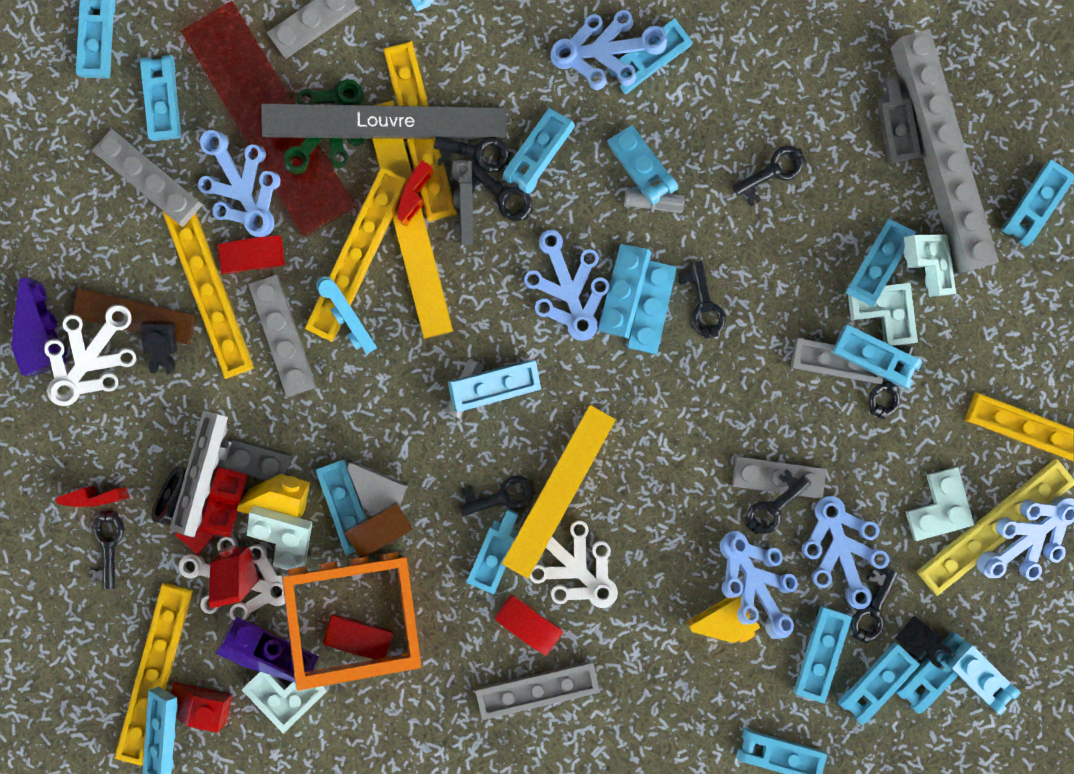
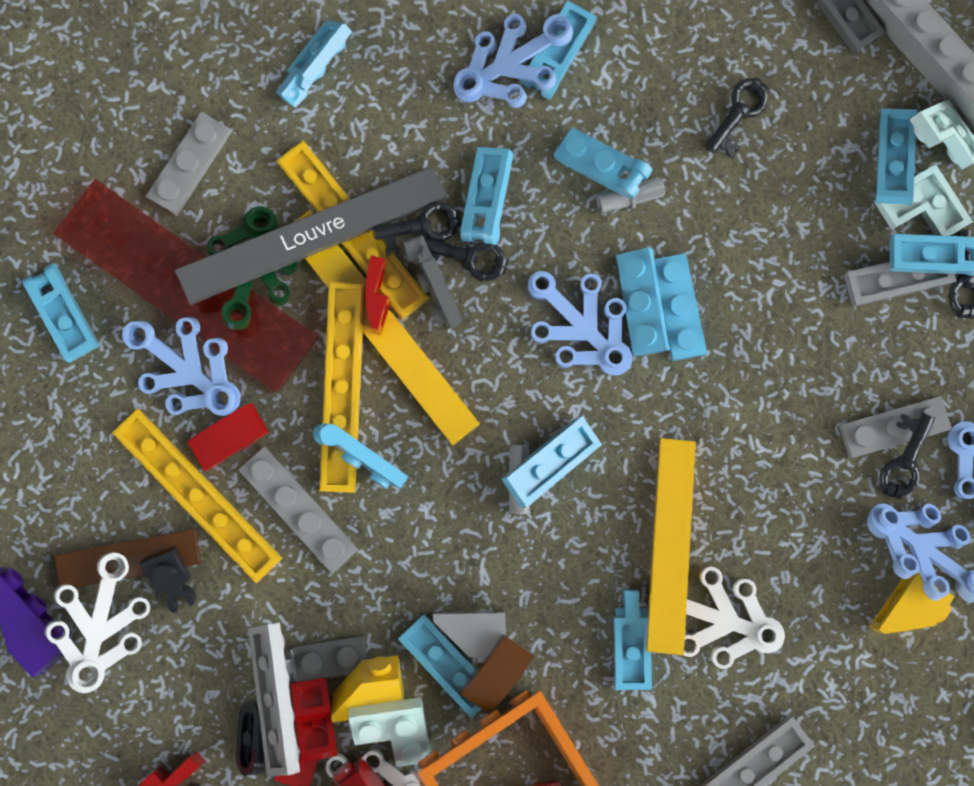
camera: 25 degrees left, 5 degrees down
(147, 177) = (81, 403): light grey plate -> none
(502, 497) = (612, 579): black piece -> none
(528, 625) = (703, 706): red slope -> none
(705, 304) = (733, 279): black piece -> none

